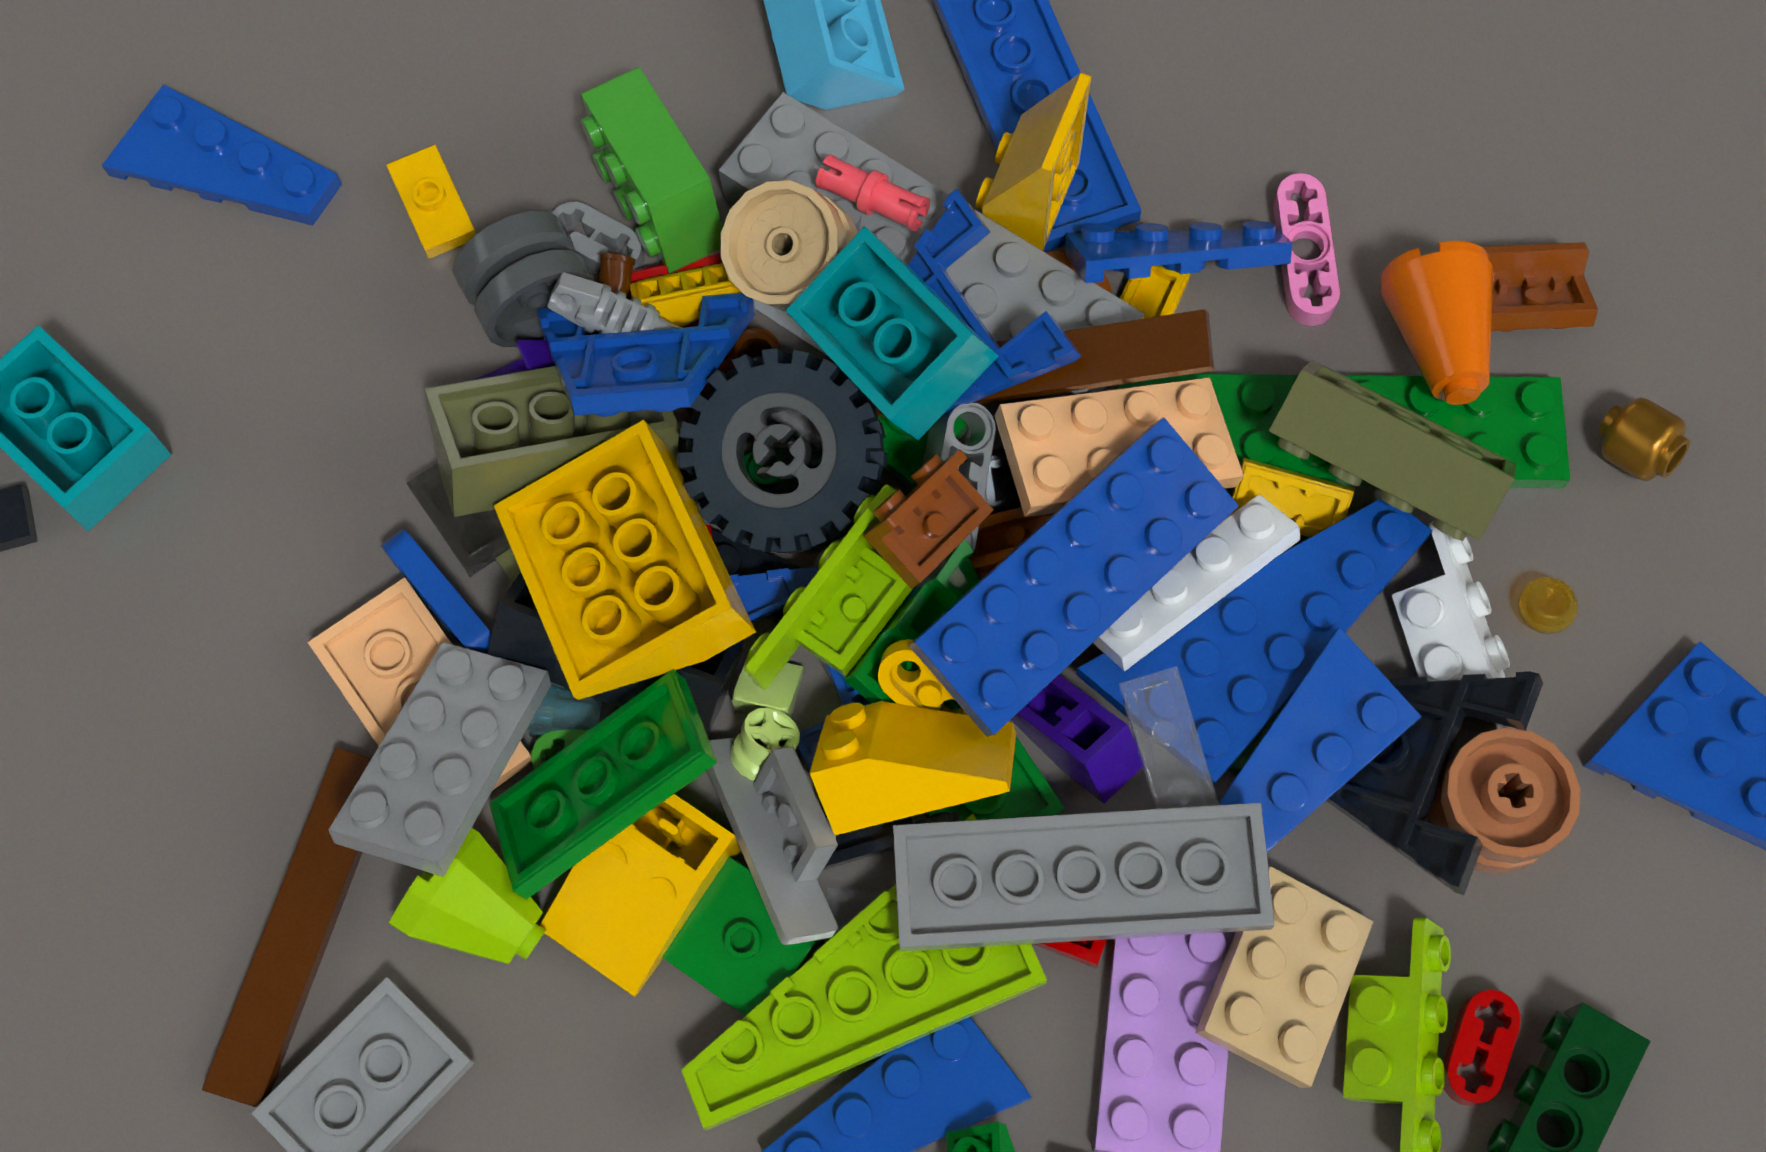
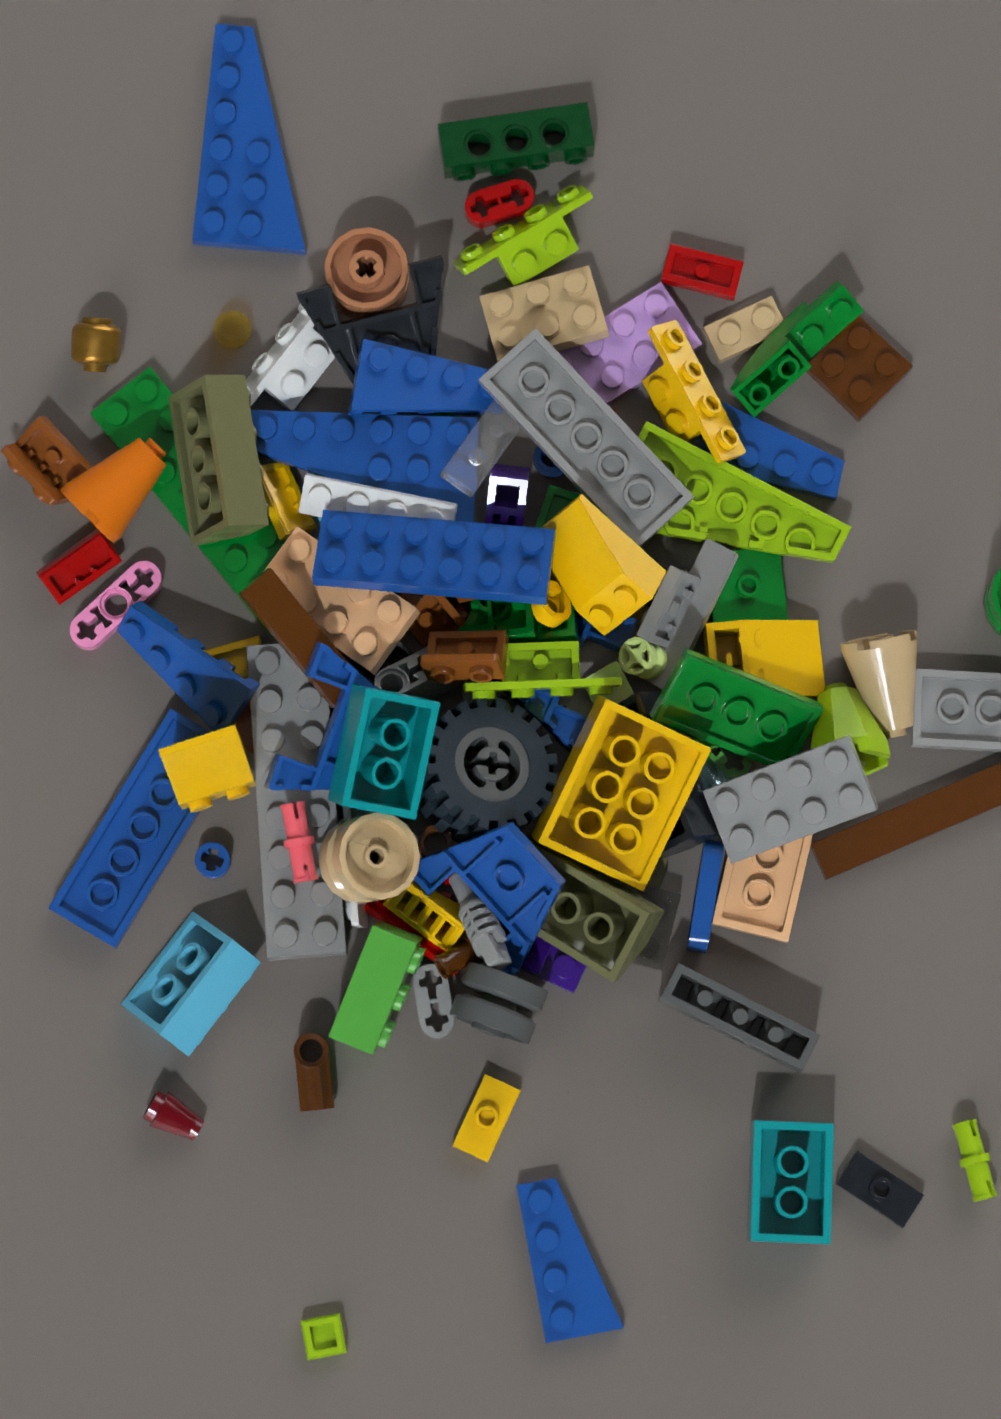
camera: 135 degrees left, 10 degrees up
(274, 516) = (739, 1018): none -> dark grey brick
(495, 1013) = (885, 677): none -> tan cone
(610, 56) = (314, 1078): none -> reddish brown piece
(942, 128) = (222, 854): none -> blue bush
(1039, 1067) = (687, 397): none -> yellow bracket
(1379, 232) = (79, 566): none -> red plate

